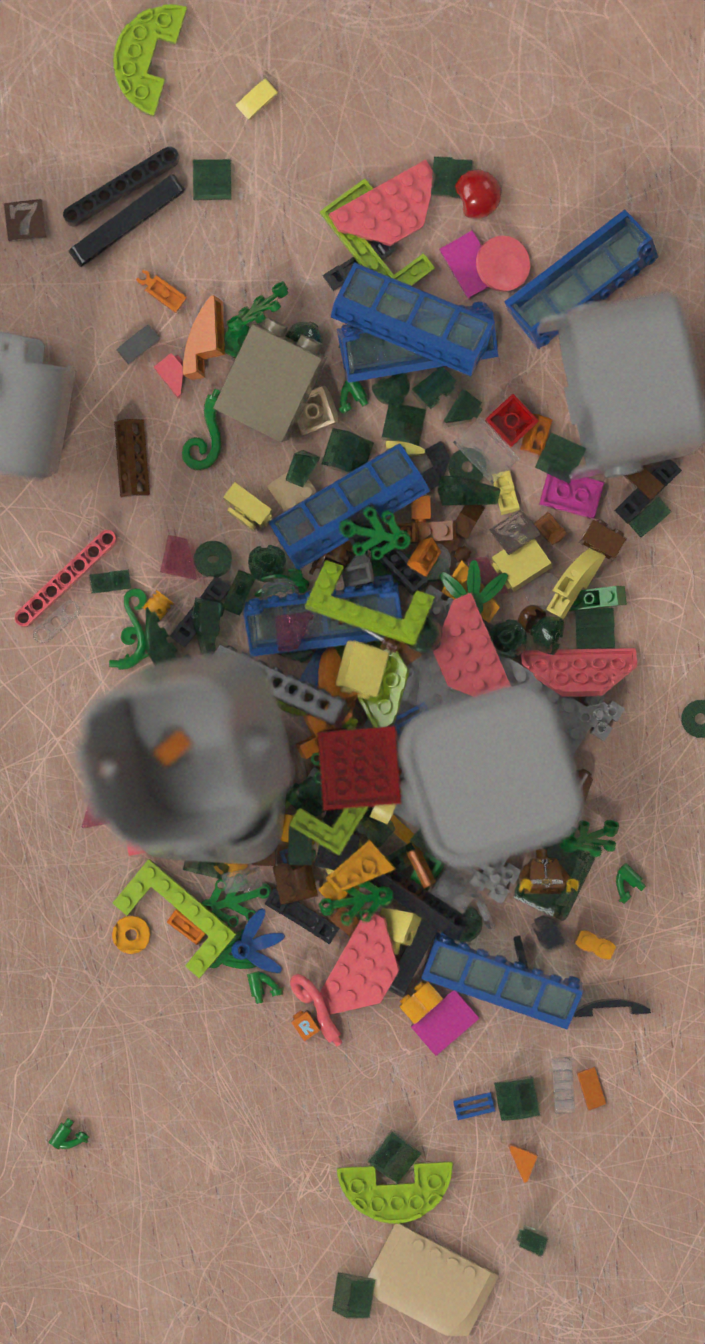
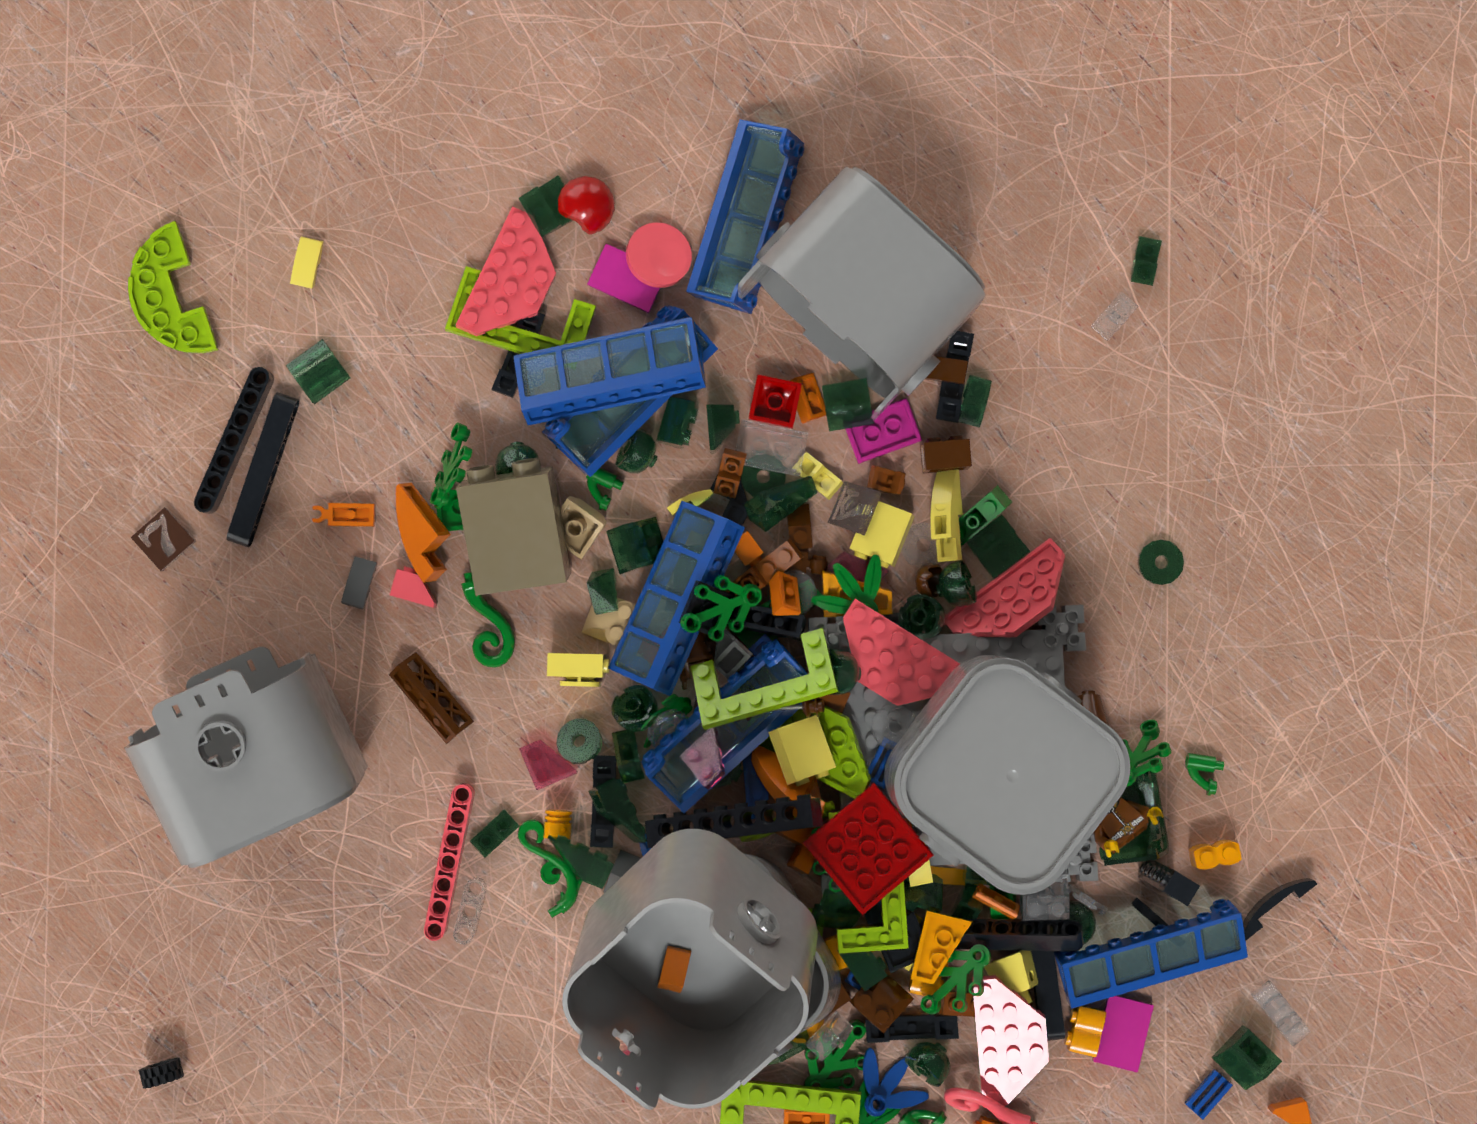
camera: 30 degrees left, 0 degrees up
(298, 947) = (929, 1061): none -> clear green cylinder
(404, 424) = (672, 478): clear green slope -> none
(446, 447) = (730, 473): none -> dark orange slope
(591, 1088) = (1309, 996): orange slope -> none

